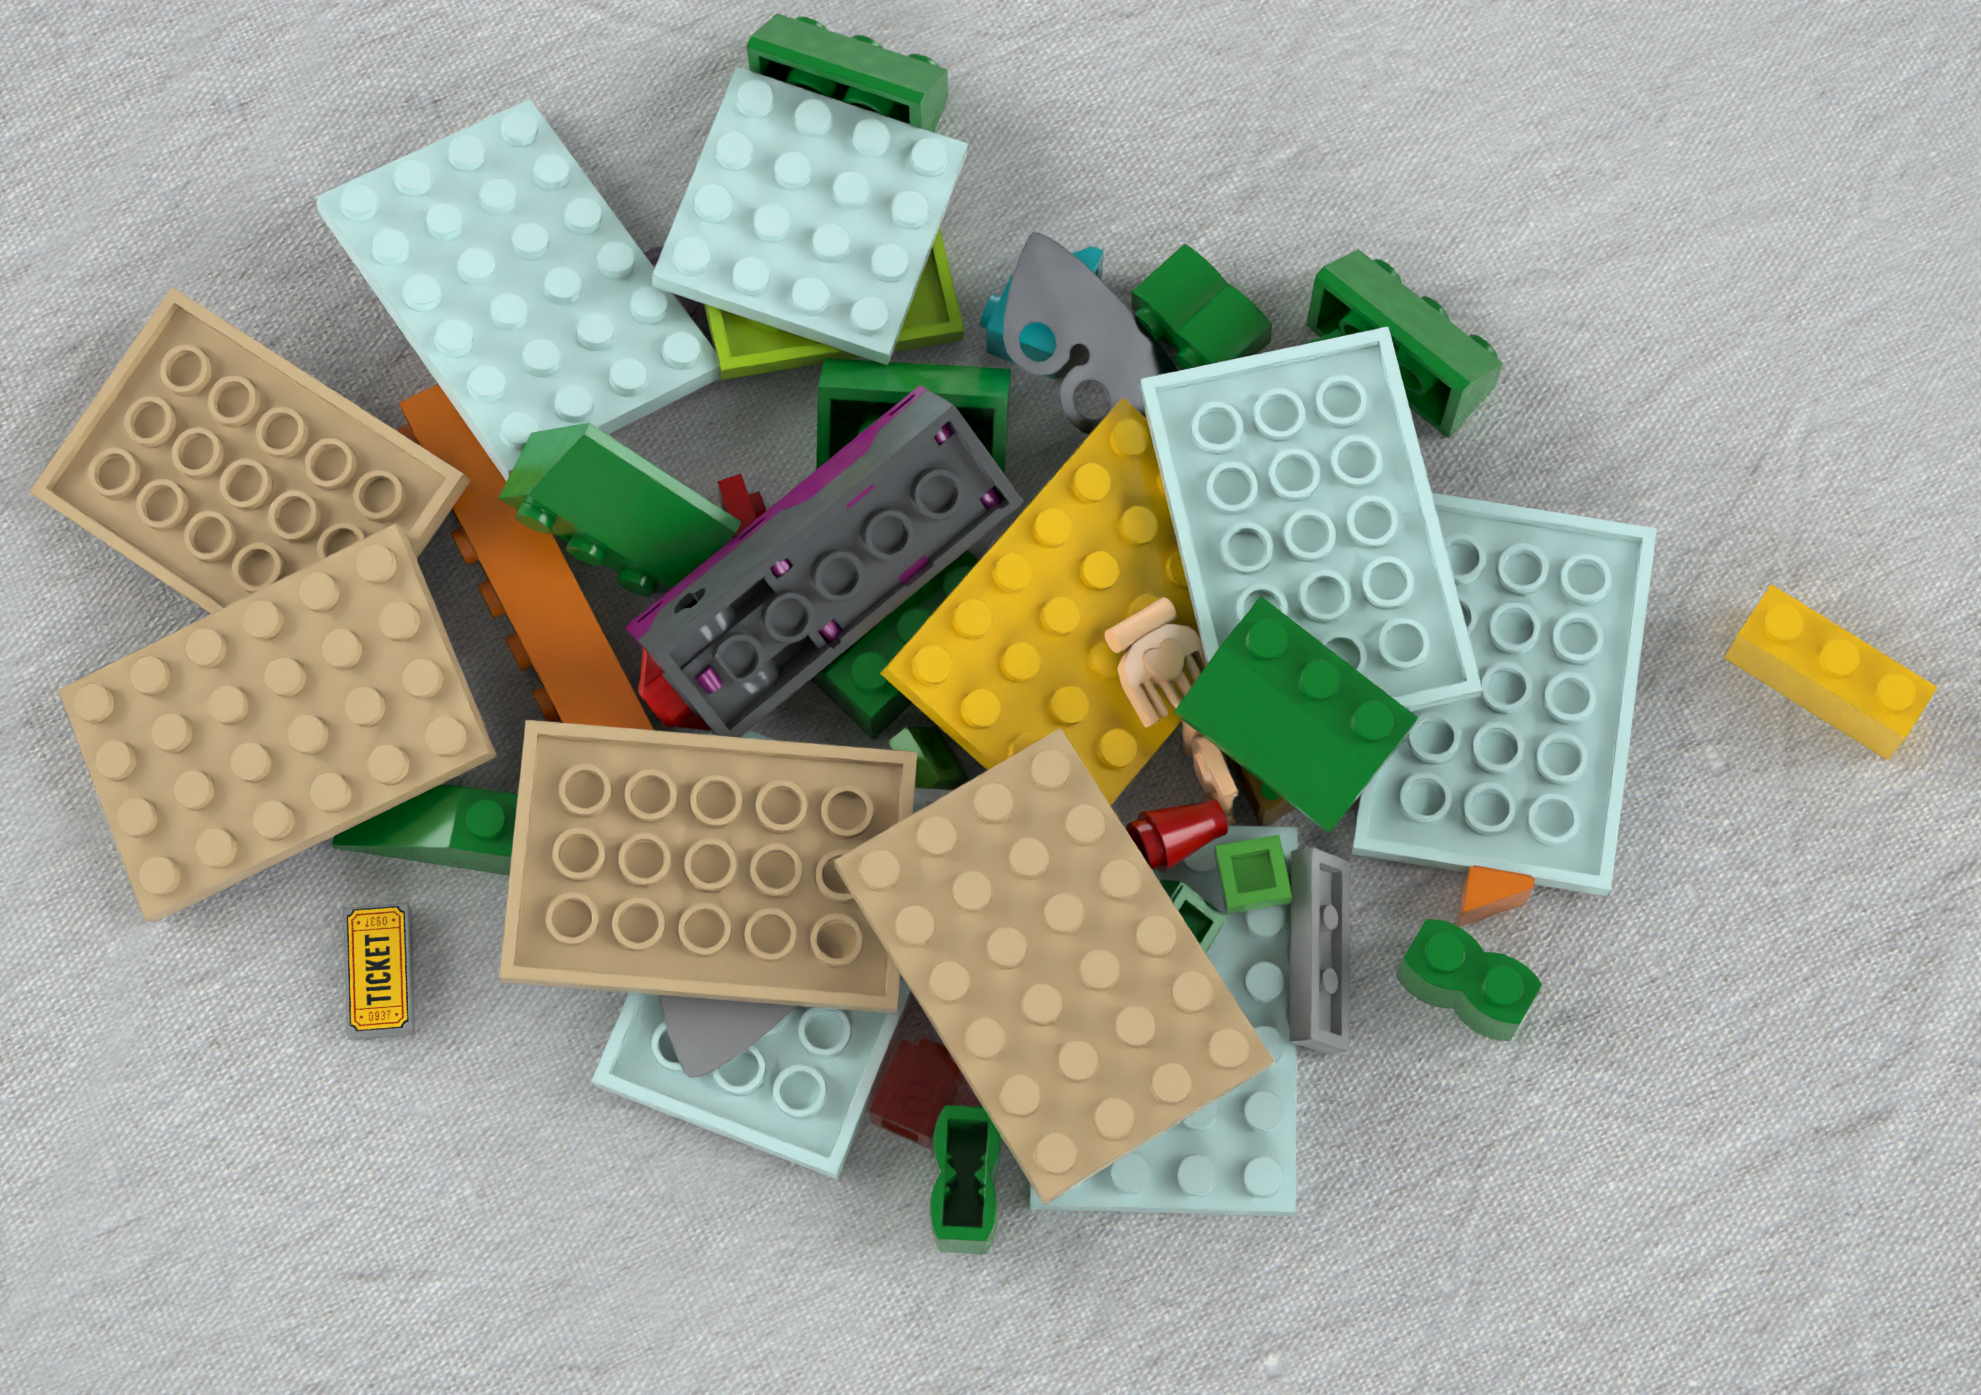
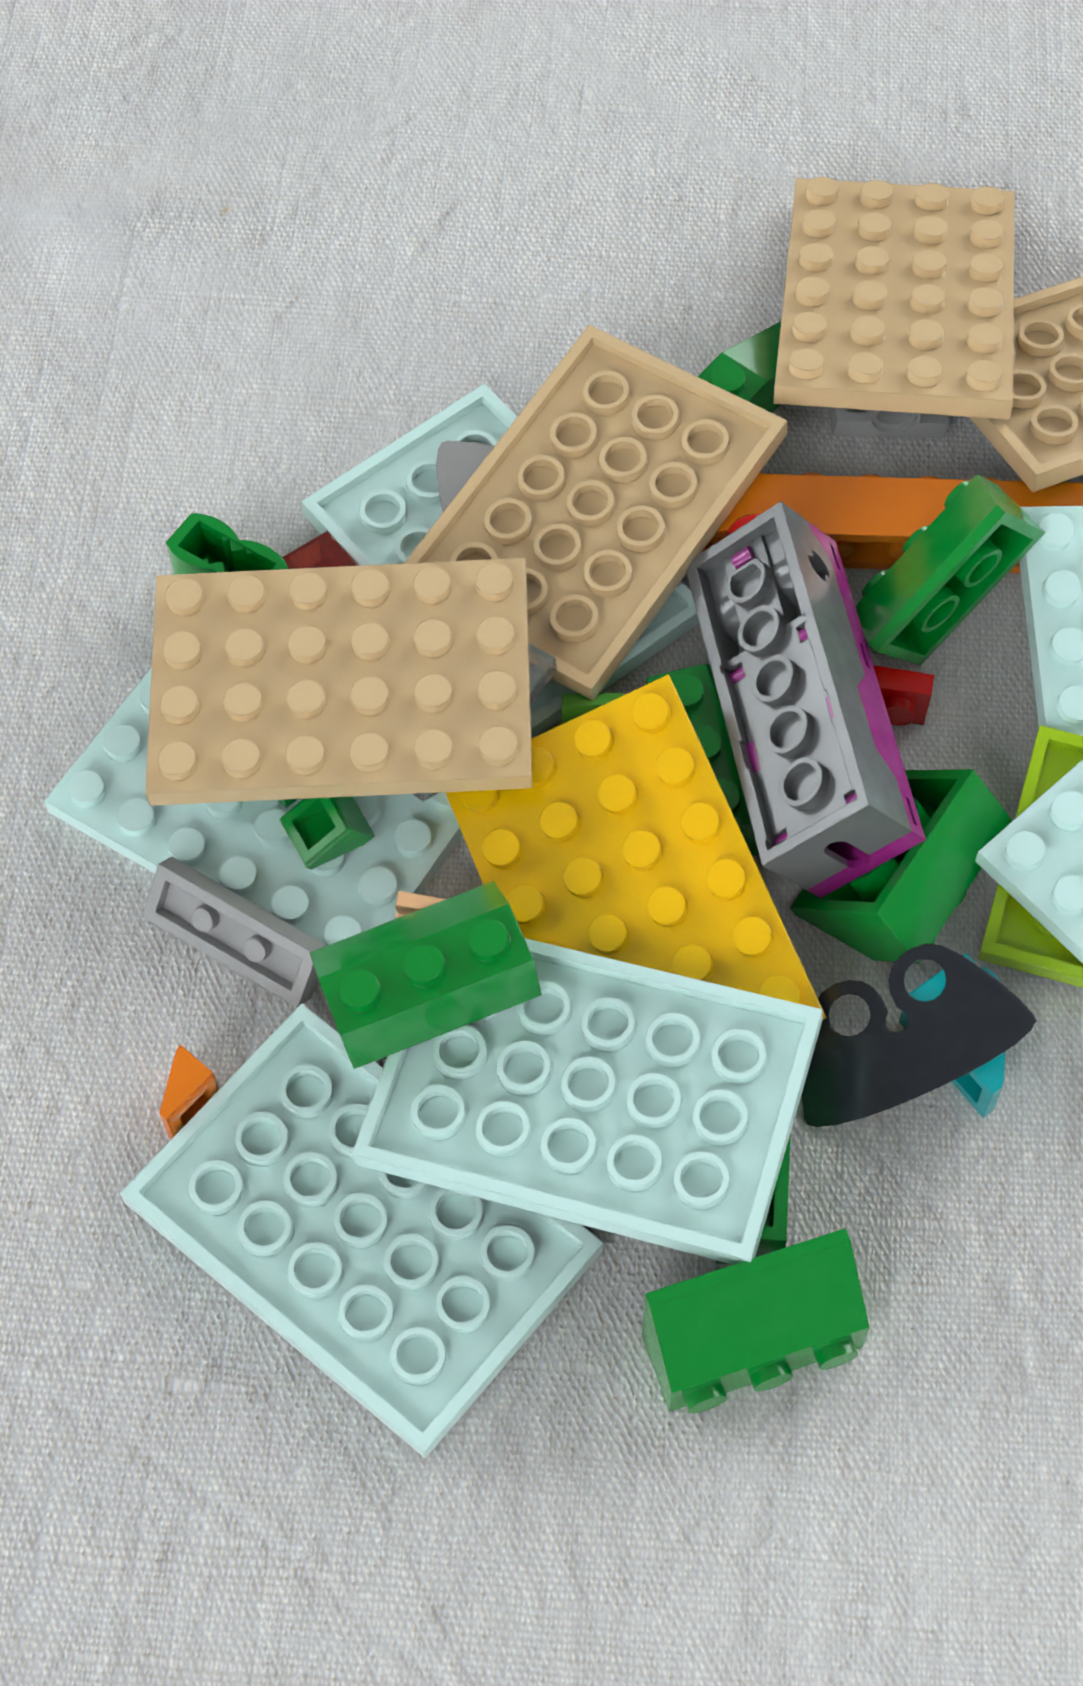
camera: 120 degrees right, 10 degrees down
(379, 971) = (665, 306): tile -> none
(1155, 657) = (564, 908): light nougat piece -> none
(1176, 832) = (400, 852): red cone -> none
(1199, 312) = (884, 1160): green brick -> none
(1252, 874) = (324, 896): bright green plate -> none
(1454, 972) = (115, 1033): green brick -> none
(1830, 672) = (177, 1525): yellow brick -> none

